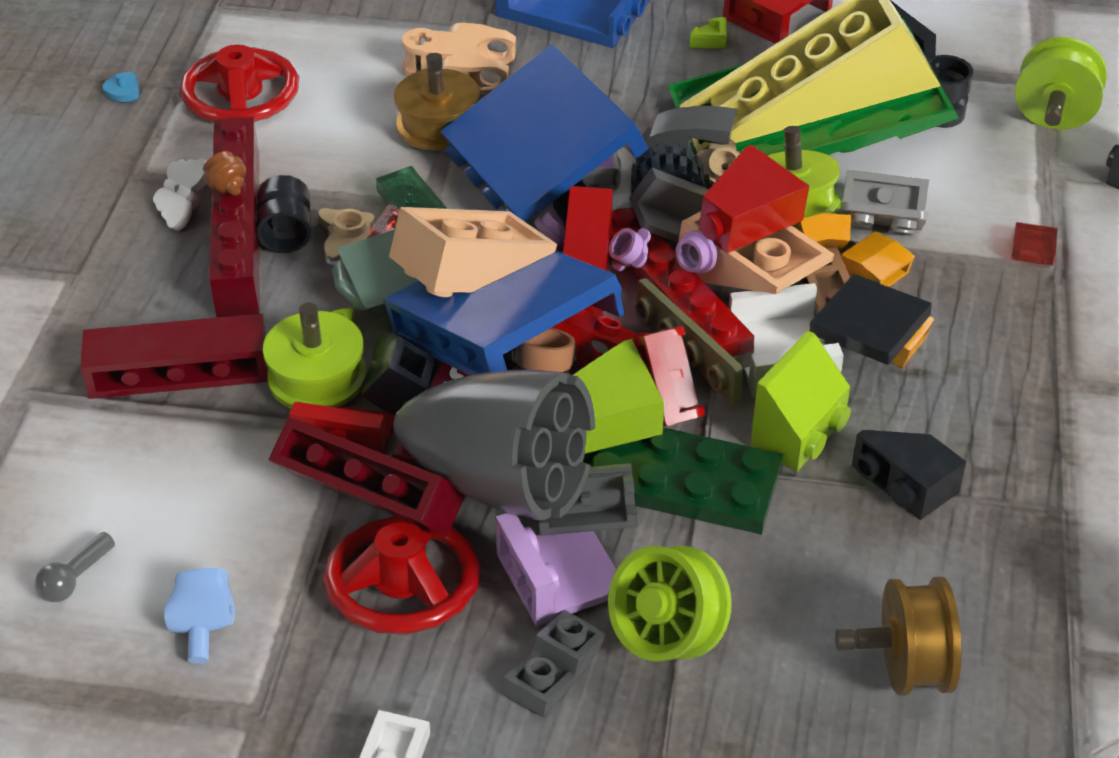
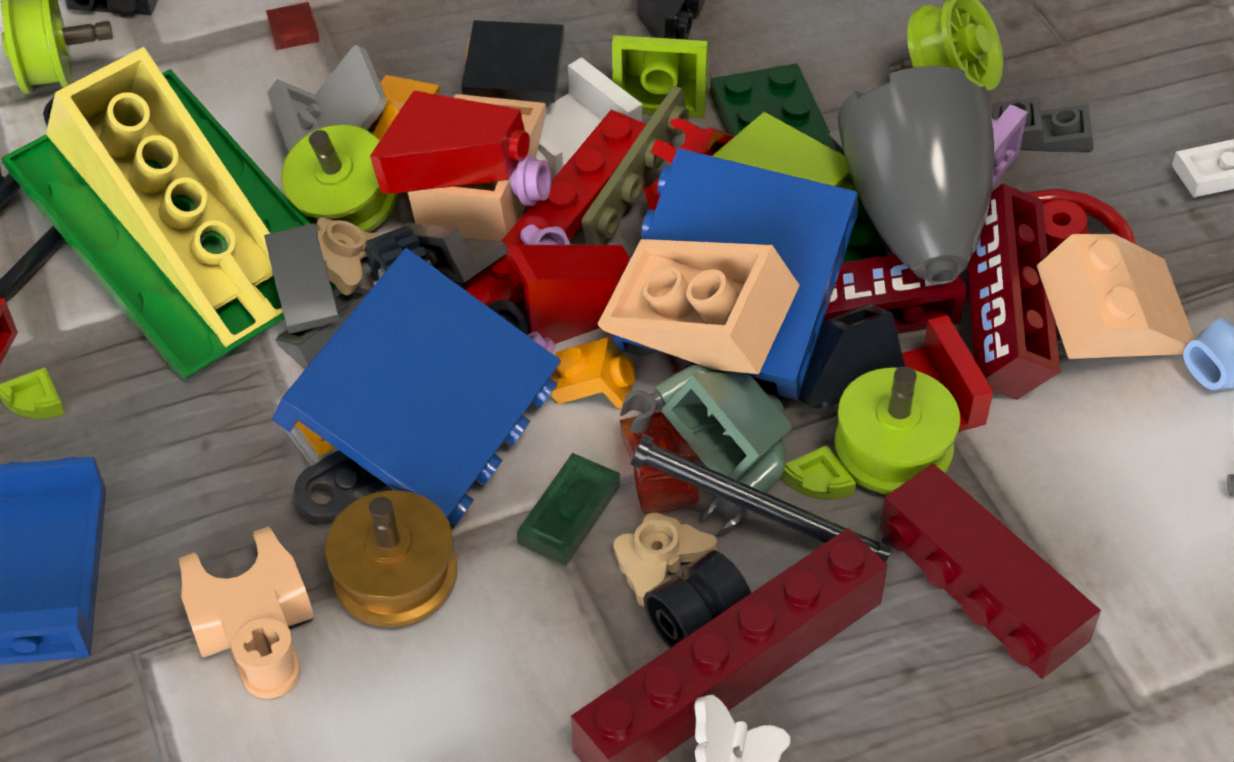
camera: 120 degrees left, 5 degrees up
(225, 173) = (736, 624): dark orange plate -> none
(277, 291) = (745, 495): none -> black bar
(288, 531) = (1113, 299): none -> light nougat slope

